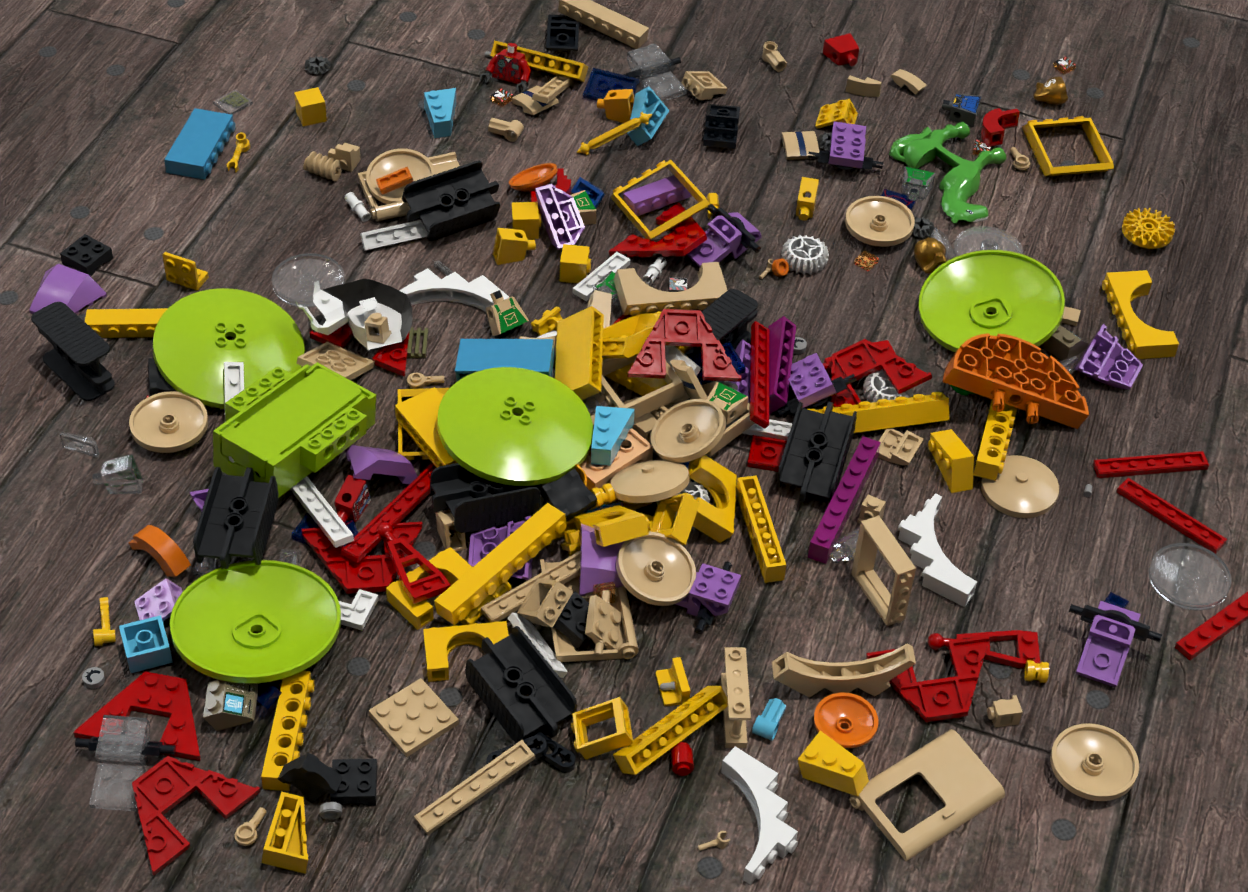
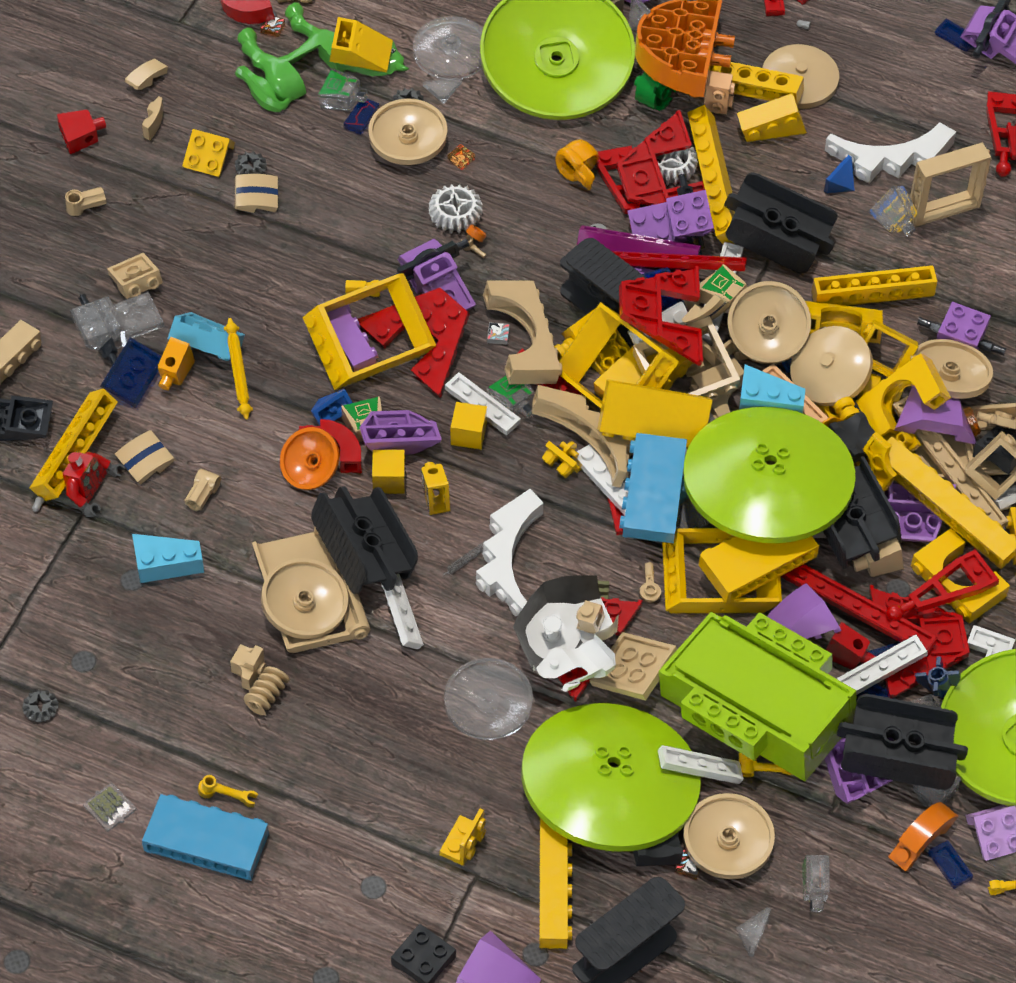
camera: 85 degrees left, 10 degrees up
(133, 576) = (950, 864): none -> clear blue tile
(310, 106) = (144, 705): yellow head -> none
(312, 559) = (938, 679): none -> brick
(357, 206) = (344, 652): white pin -> none
(394, 180) = (321, 599): orange plate -> none
(501, 97) = (131, 494): clear orange tile -> none
(504, 314) = (559, 496): torso -> none
(543, 500) = (878, 453): none -> yellow tile
(552, 89) = (136, 433): tan tile -> none
(654, 271) = (475, 353): white pin -> none
(721, 126) = (213, 266): black slope -> none
(766, 453) = (759, 270): red tile -> none
(806, 205) = (368, 194): yellow torso -> none
(844, 500) = (857, 225): magenta brick -> none
(847, 148) = (282, 148): medium lavender piece -> none
(870, 324) = (576, 162): none -> light orange piece
(871, 508) = (844, 196): tan brick -> none
(896, 510) = (841, 178): none -> blue slope
(898, 447) = (747, 160): tan slope -> none
(929, 254) = (470, 94): pearl gold piece -> none
(959, 181) = (360, 46): none -> yellow slope
(963, 108) = (206, 29): torso -> none
(972, 415) = (719, 92): none -> light nougat brick

